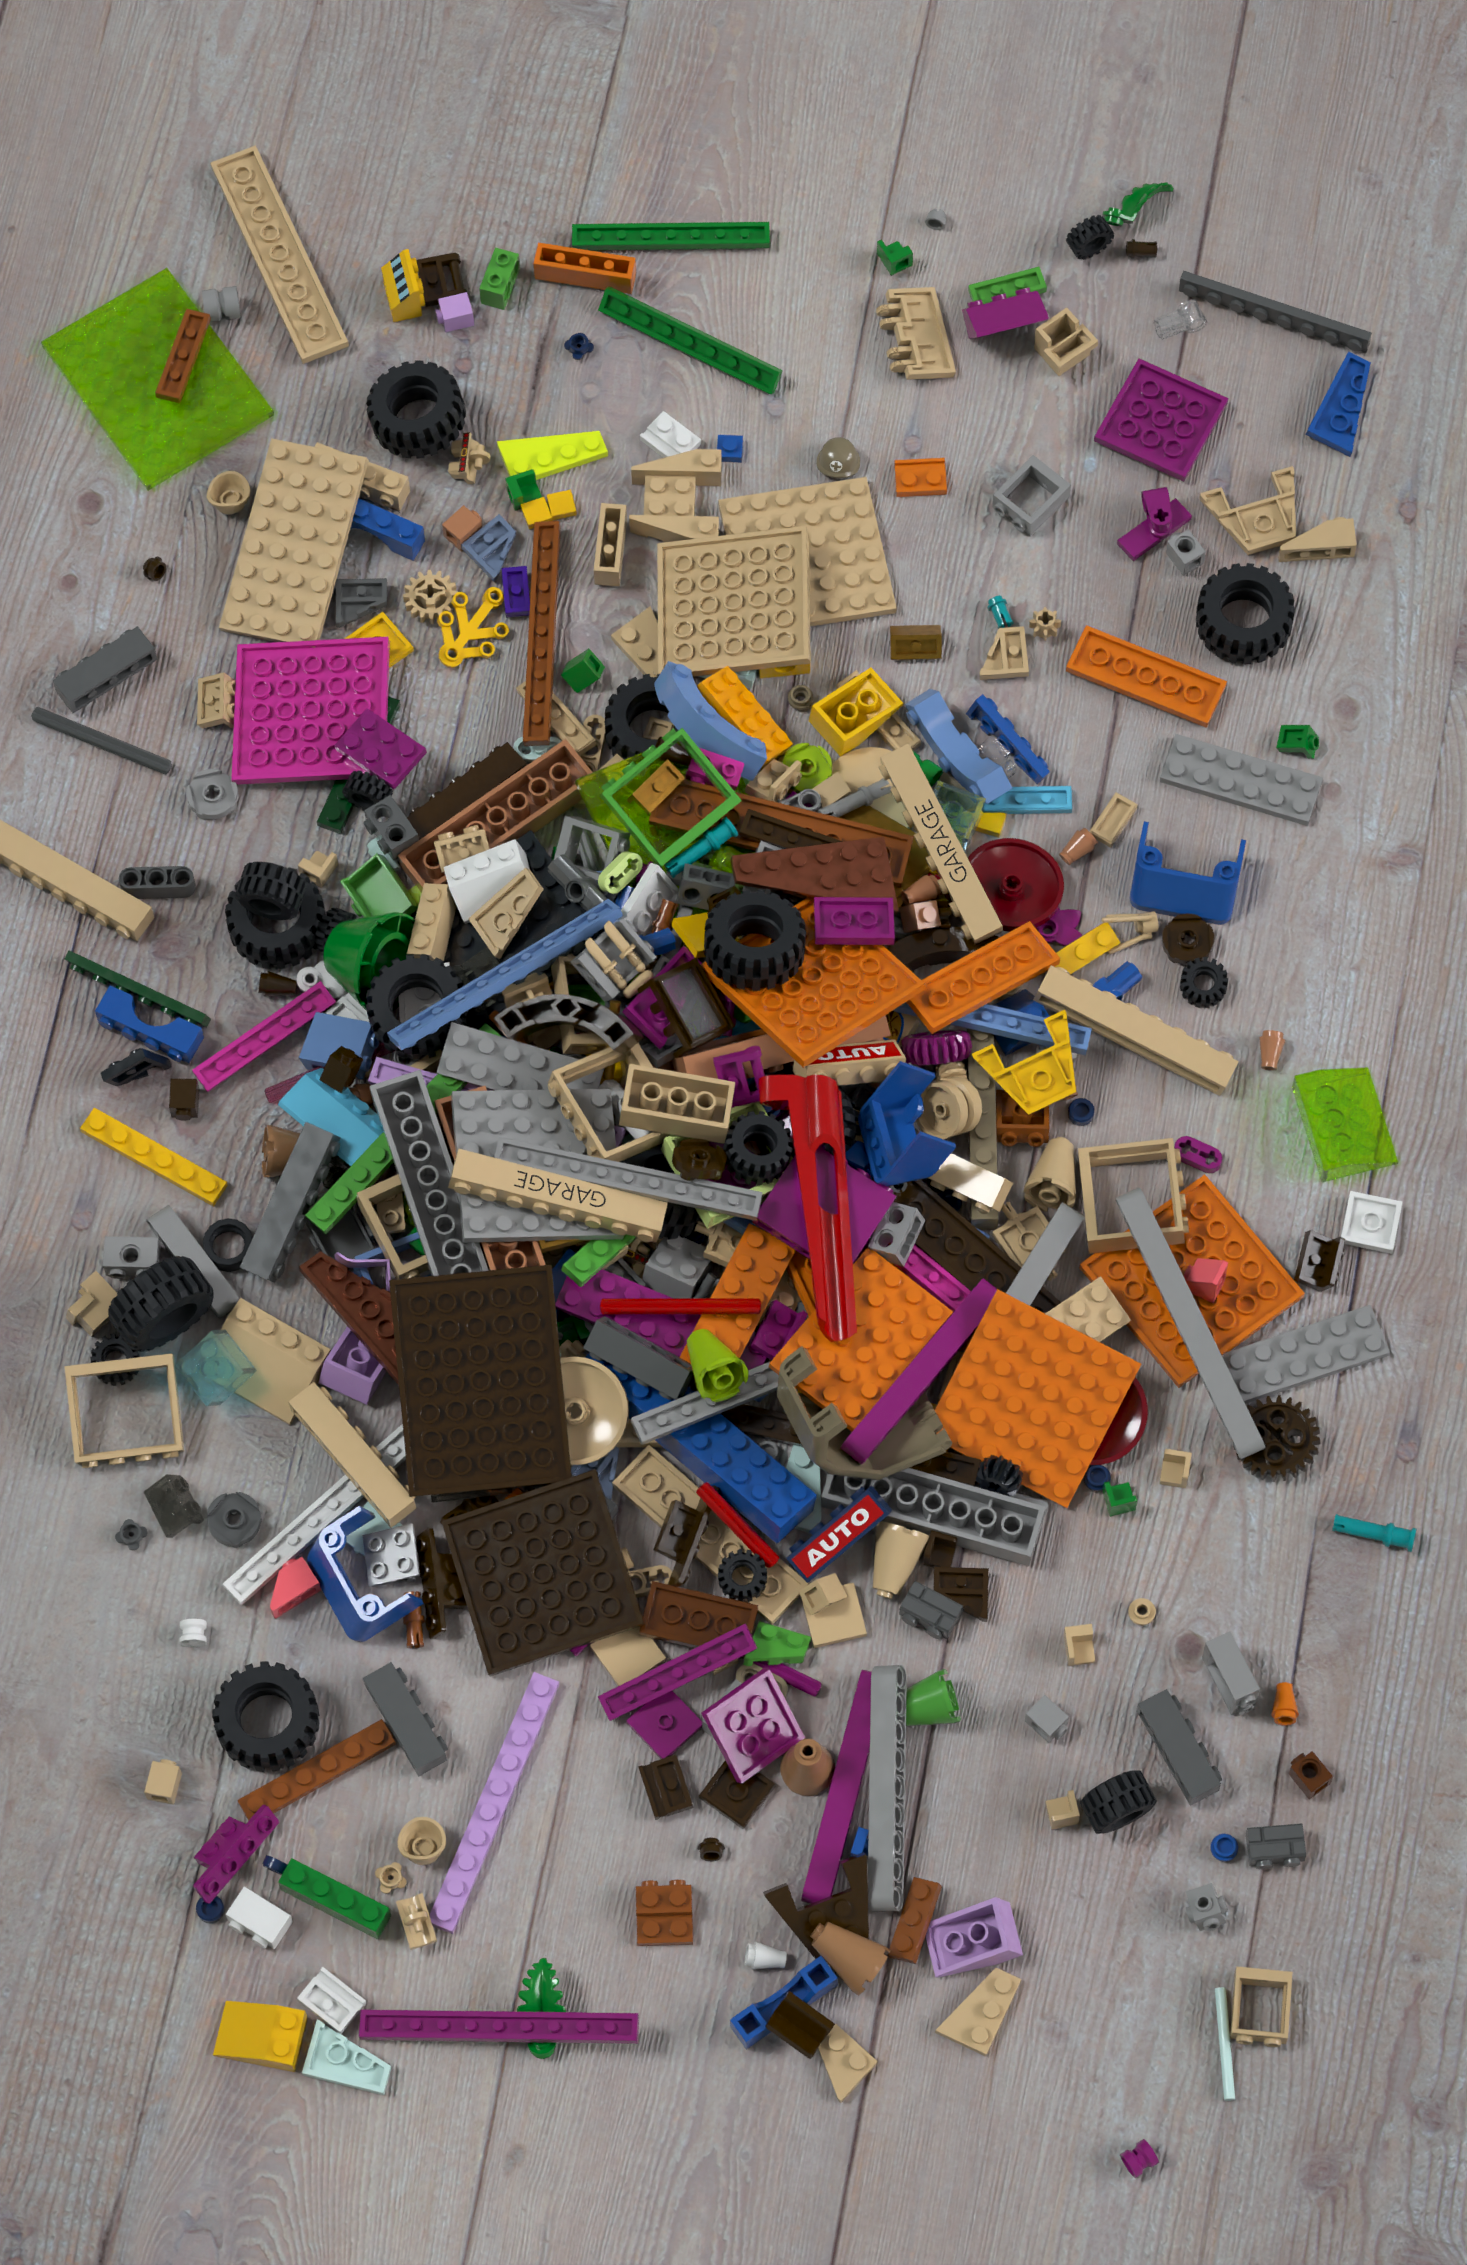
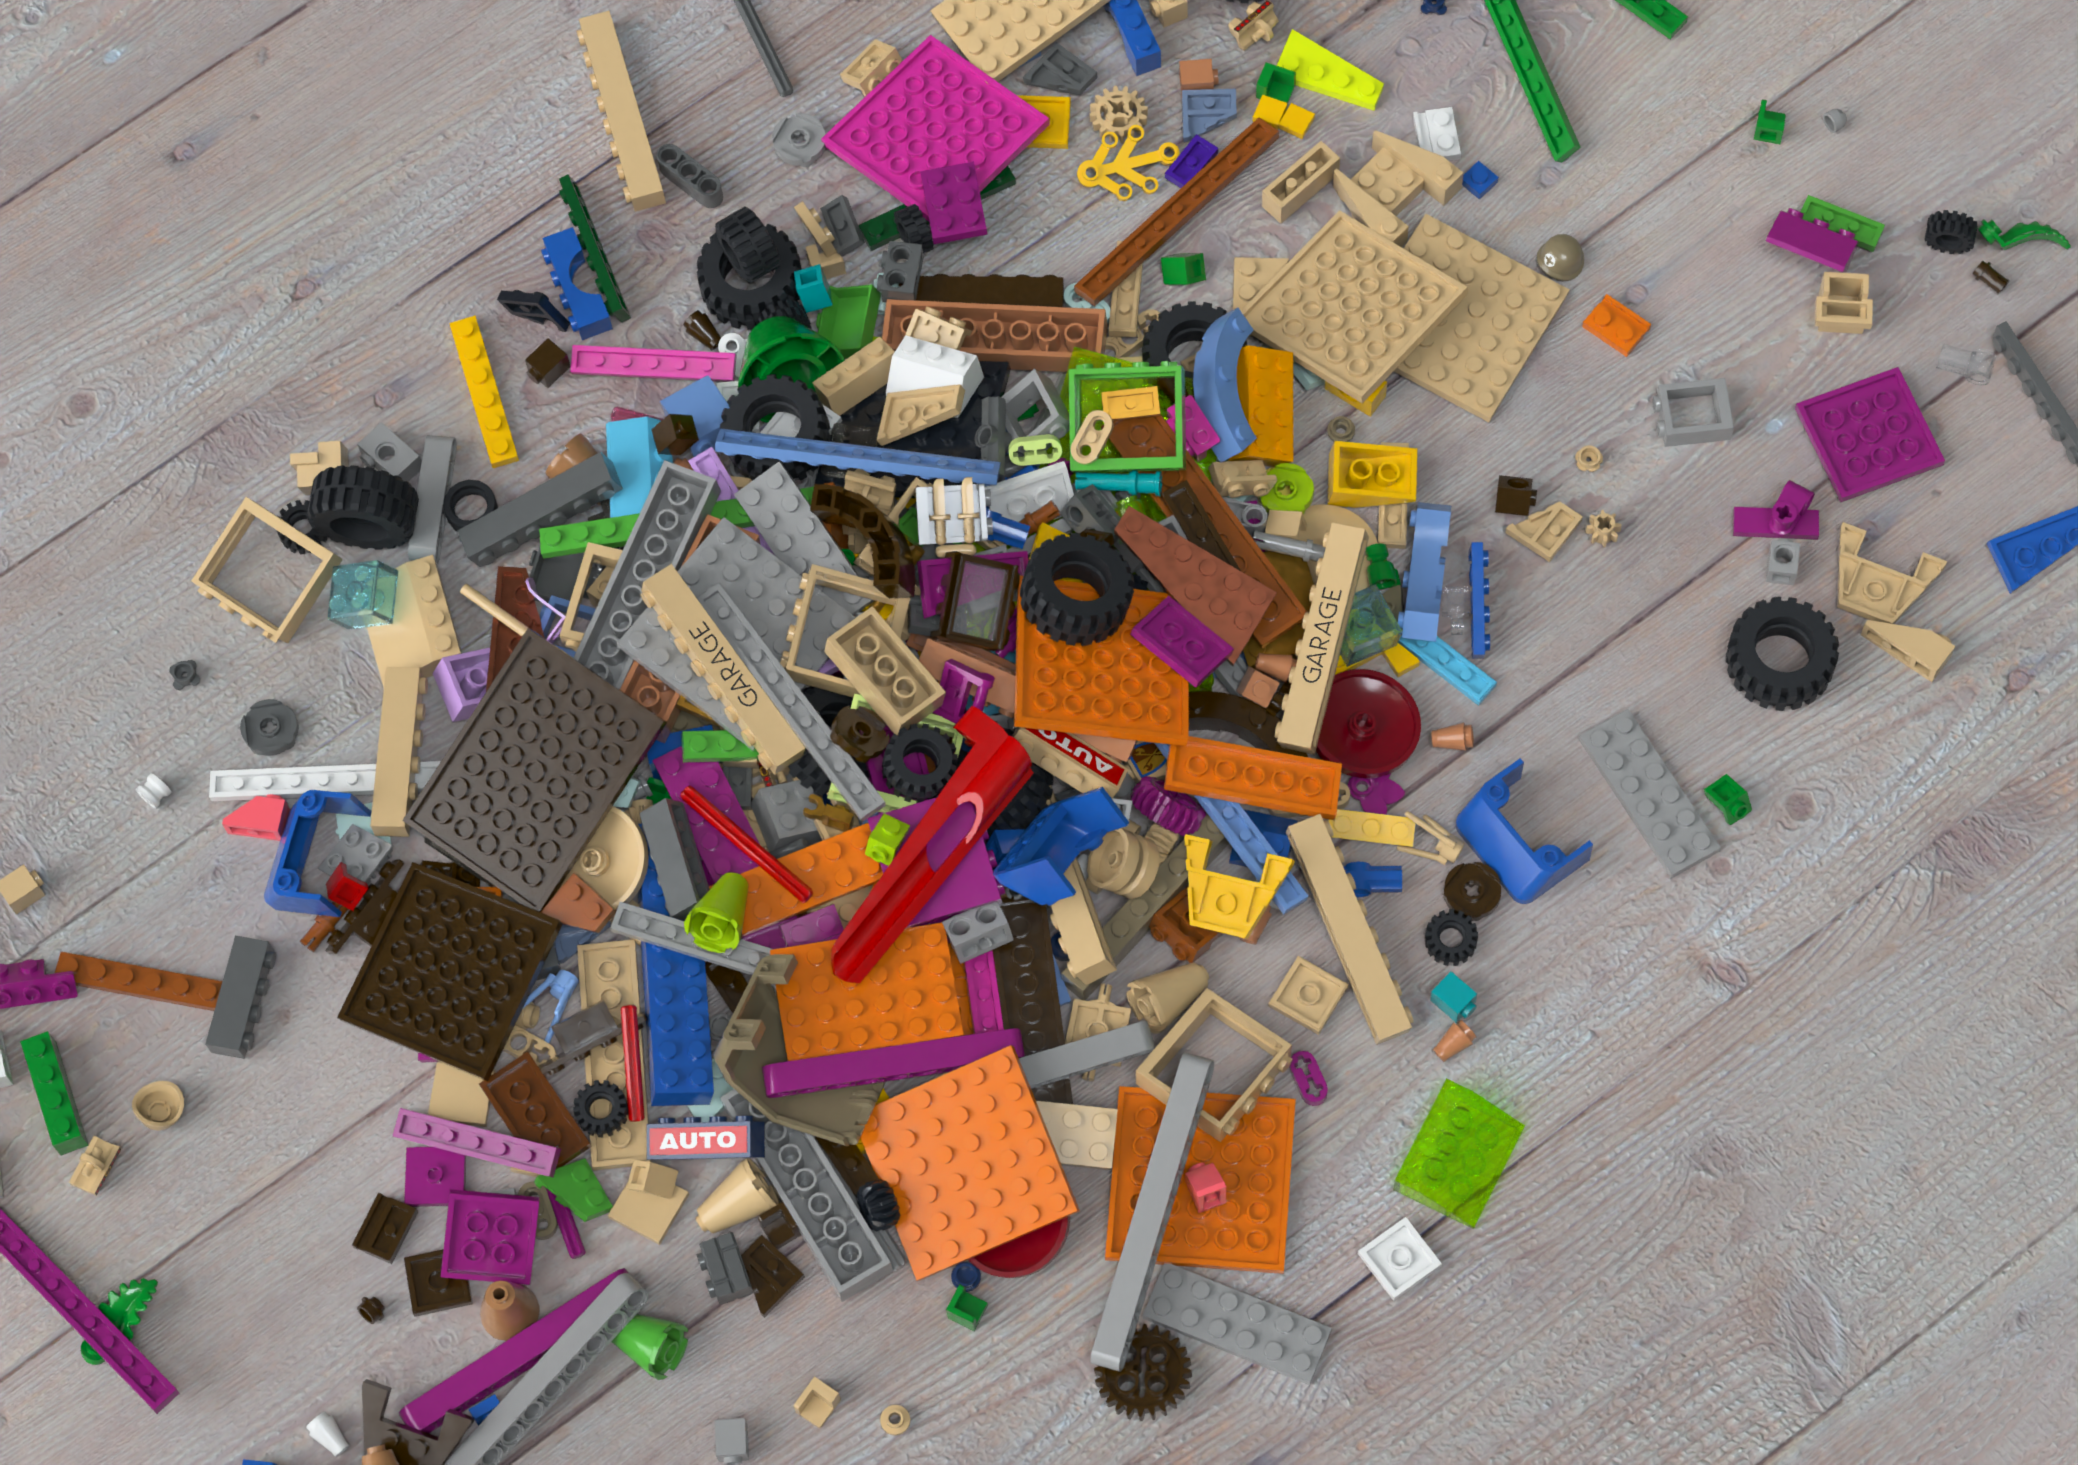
camera: 45 degrees right, 0 degrees up
(173, 1504) = (237, 678): clear smoke bracket -> none
(261, 1682) = (118, 876): black tyre -> none
(274, 1864) = (37, 1024): dark blue tile -> none
(281, 845) = (821, 235): none -> tan plate
(306, 830) = (842, 225): none -> dark grey plate
(337, 888) = (813, 288): none -> teal brick
(344, 1296) = (494, 609): none -> tan bar
(390, 1870) = (109, 1107): tan plate -> none
(408, 1579) = (345, 888): none -> red panel
(493, 1802) = (246, 1123): lavender plate -> none
(597, 1449) = (579, 906): none -> dark orange wing
(630, 1518) = (561, 988): none -> light blue plant
(660, 829) = (1091, 437): none -> tan plate
(664, 1913) = (287, 1329): dark orange plate -> none
(720, 1239) = (832, 816): none -> pearl gold plate
(784, 1218) = (886, 839): none -> lime bracket
(916, 642) = (1480, 458): pearl gold panel -> none
(919, 332) = (1731, 203): tan hinge -> none
(965, 648) = (1515, 495): none -> dark brown brick
(993, 579) = (1588, 452): none -> tan plate
(1000, 611) = (1577, 483): teal pin -> none
(1081, 1111) = (1245, 961): dark blue tile -> none
(1113, 819) = (1506, 739): tan tile -> none
(1146, 676) = (1649, 641): orange plate -> none
(1146, 1099) = (1308, 995): none -> tan plate
(1175, 1468) = (1036, 1325): tan panel -> none
(1244, 1020) = (1454, 997): none -> teal brick
(1319, 1261) = (1322, 1253): dark brown bracket -> none

